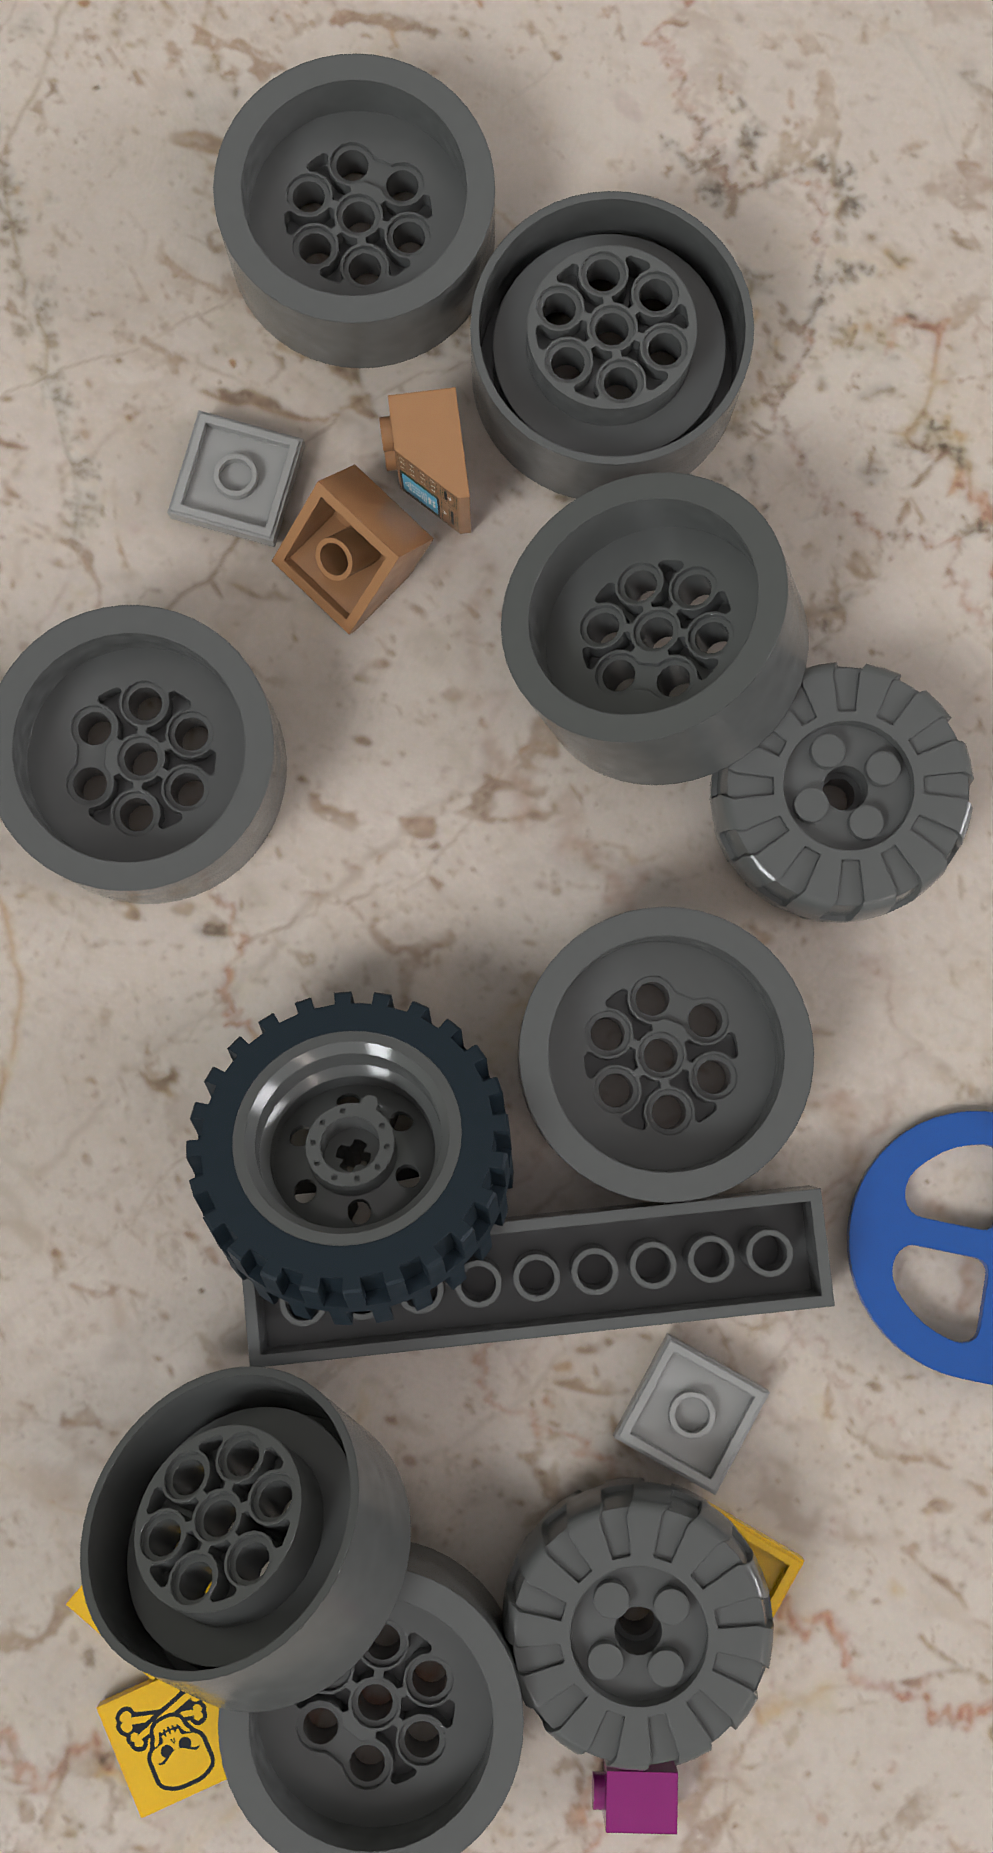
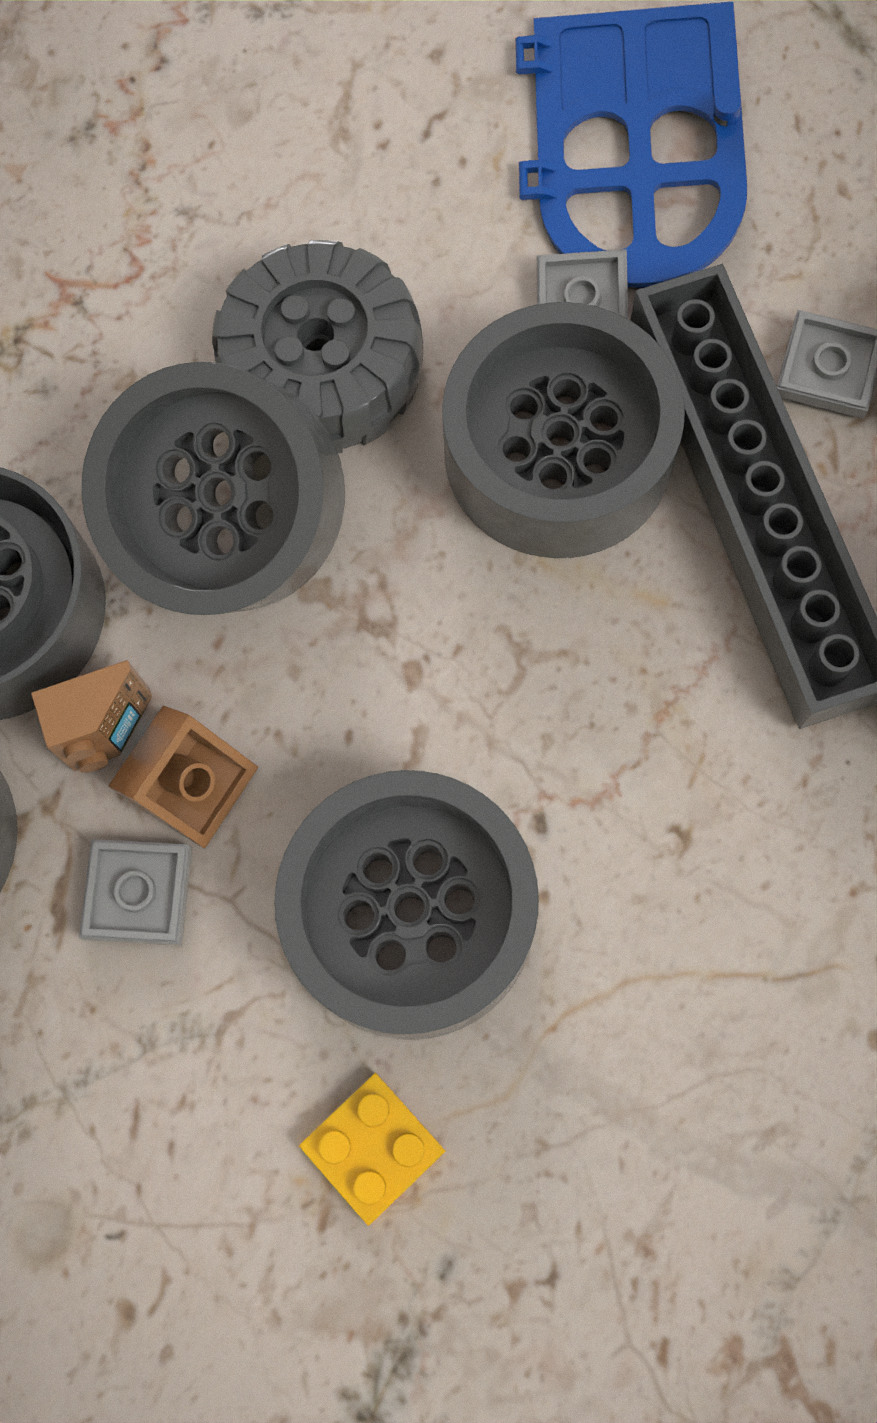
camera: 95 degrees left, 10 degrees down
(293, 1083) = (675, 555): wheel -> none
(850, 1134) = (585, 278): none -> light grey plate

